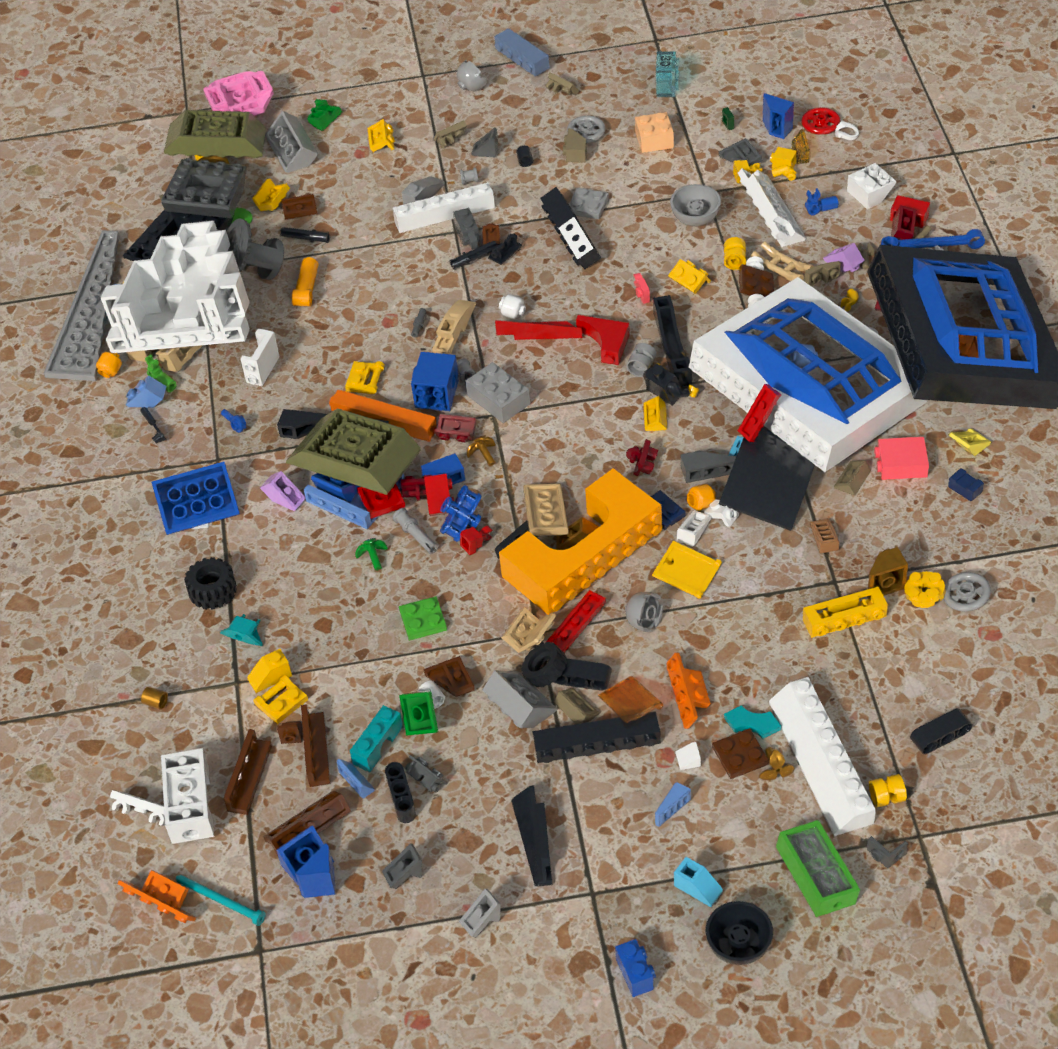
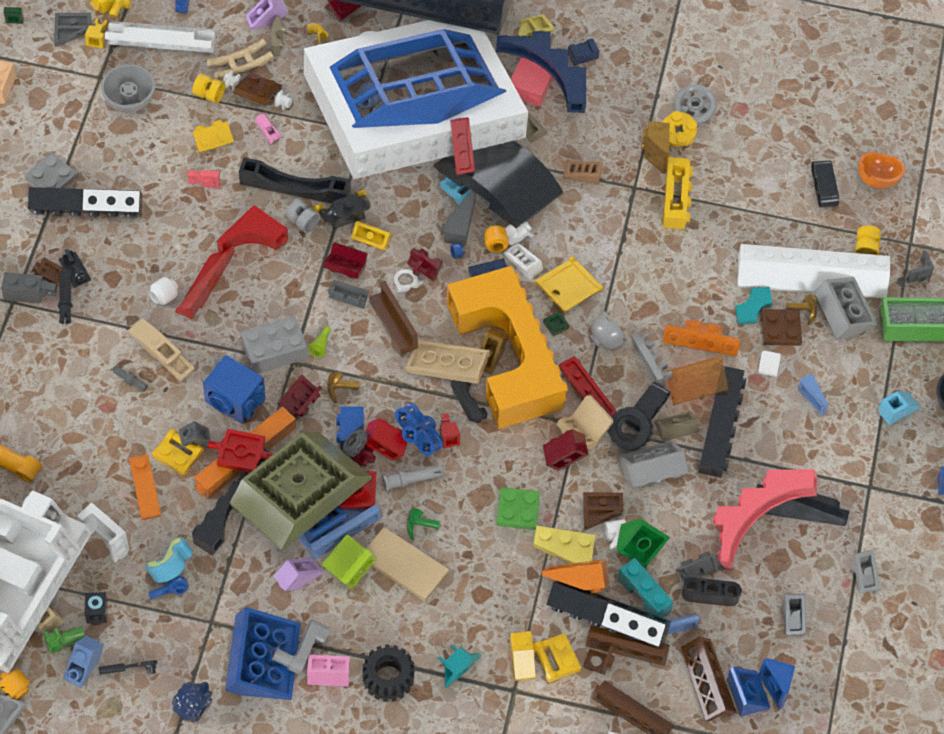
camera: 75 degrees left, 10 degrees up
(133, 469) = (192, 701): none -> dark blue animal
(195, 383) = (96, 608): none -> black brick
(198, 542) = (328, 670): none -> bright pink hinge
(228, 520) = (314, 632): none -> light grey beam
(256, 408) = (172, 563): none -> medium azure animal
(306, 521) = (349, 561): none -> lime bracket
(321, 367) = (145, 487): none -> orange slope
(327, 560) = (406, 564): none -> tan tile
(333, 715) = (609, 613): none -> black brick
(364, 680) = (583, 575): none -> orange slope
(373, 402) = (240, 450): none -> red plate
(383, 379) = (194, 433): none -> dark grey bracket
(400, 668) = (565, 544): none -> light yellow wing
(418, 472) = (354, 443): none -> dark grey gear
(493, 622) = (565, 449): none -> dark red brick
(504, 788) = (754, 502): none -> coral arch
(516, 422) = (319, 345): none -> lime cone
(569, 459) = (394, 319): none -> reddish brown fence
(578, 419) = (348, 294): none -> dark grey hinge
(611, 456) = (401, 289): none -> white piece
(612, 406) = (346, 260): none -> dark red bracket
(634, 656) = (650, 358): none -> light grey plate
(638, 576) = (556, 323): none -> dark green tile
(672, 476) = (456, 250): none -> blue hinge
(722, 306) = (267, 128): none -> bright pink bar
(791, 795) = (845, 307): none -> light grey slope
(914, 474) = (555, 61): none -> dark blue arch
(987, 769) = (880, 170): none -> orange cylinder

